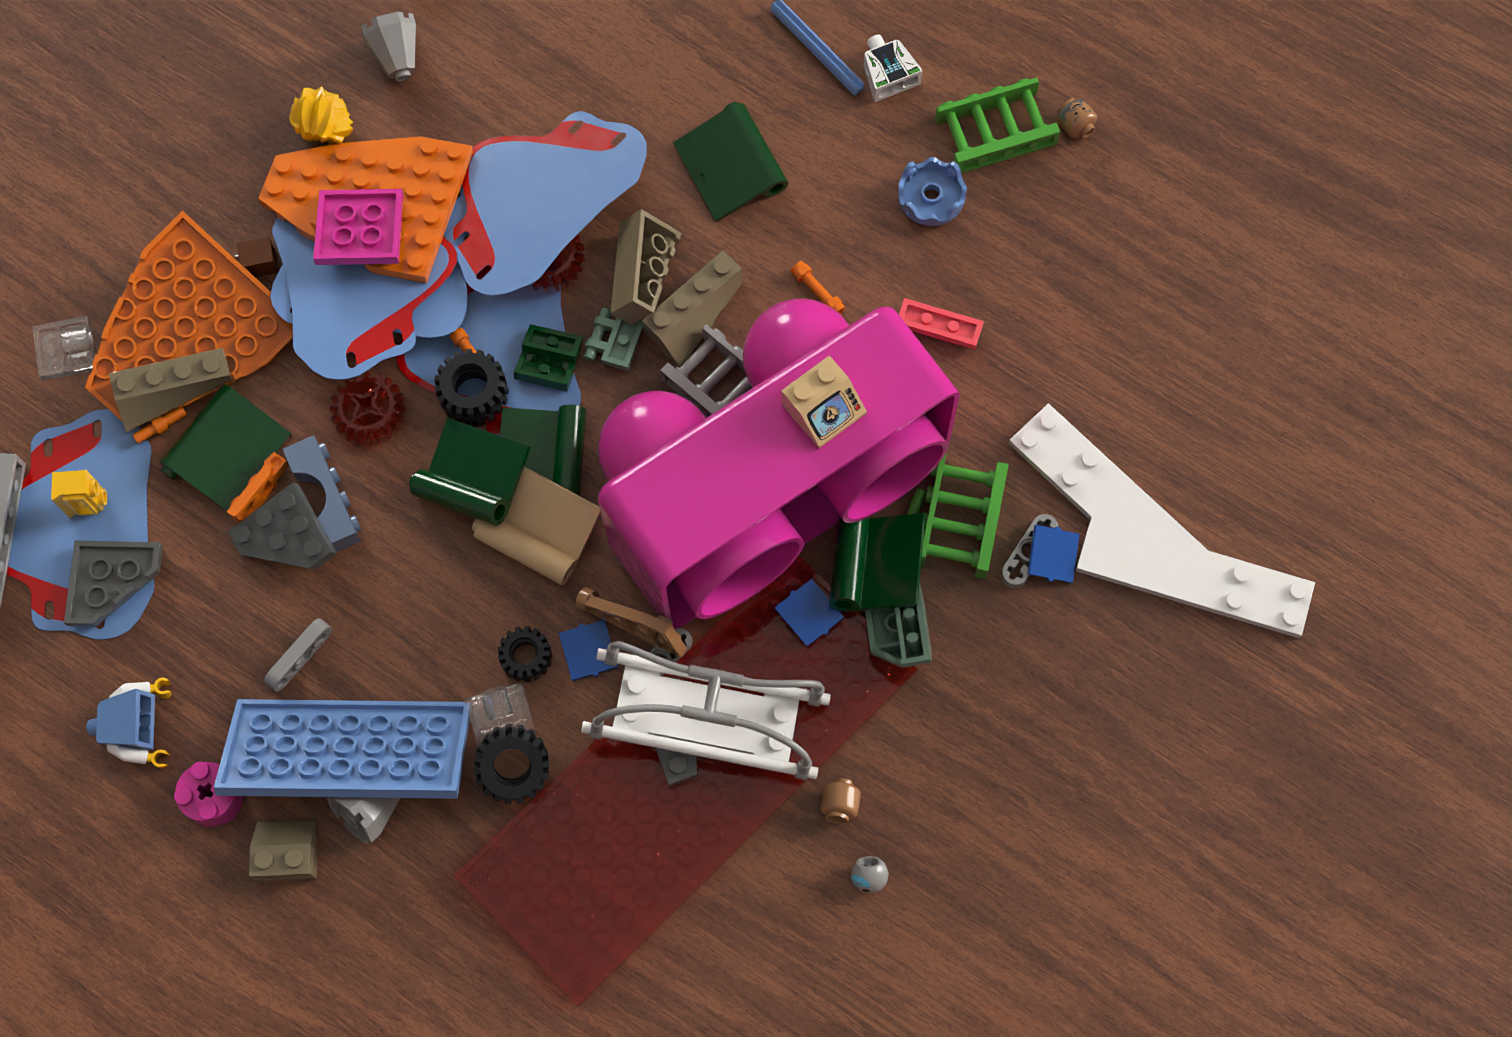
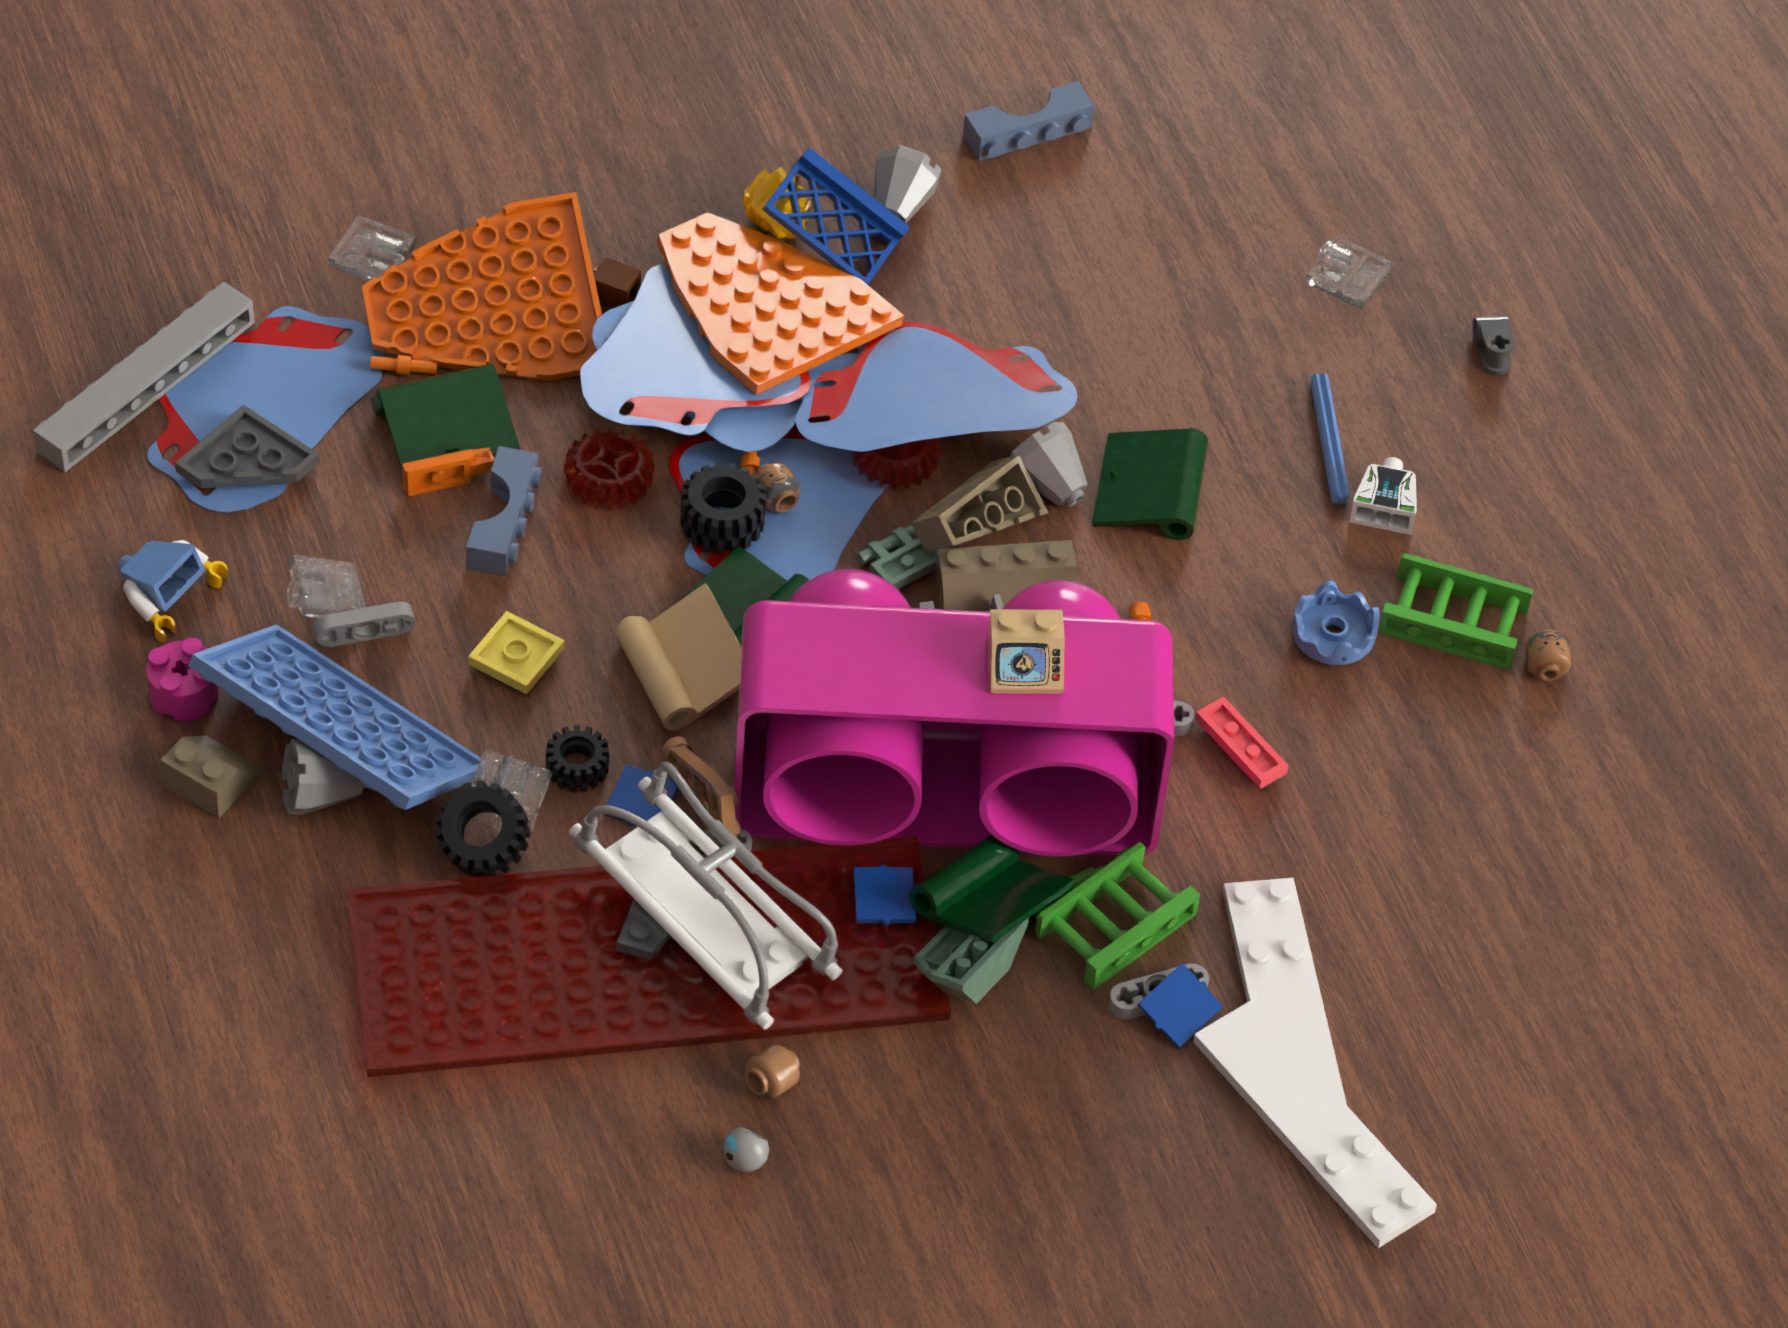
camera: 30 degrees right, 20 degrees down
(77, 493) = (279, 365): yellow window -> none
(165, 385) = (439, 327): dark tan wedge -> none
(250, 647) = (323, 586): none -> clear plate
(284, 532) = (440, 514): dark grey plate -> none
(358, 227) = (730, 304): dark pink plate -> none
(365, 81) = (845, 195): none -> blue fence
(418, 600) = (516, 652): none -> light yellow plate
(472, 473) = (659, 573): dark green door -> none
(492, 341) = (780, 487): none -> medium nougat head
(548, 357) = (821, 534): dark green slope -> none
(664, 197) = (1054, 465): none -> light grey cone

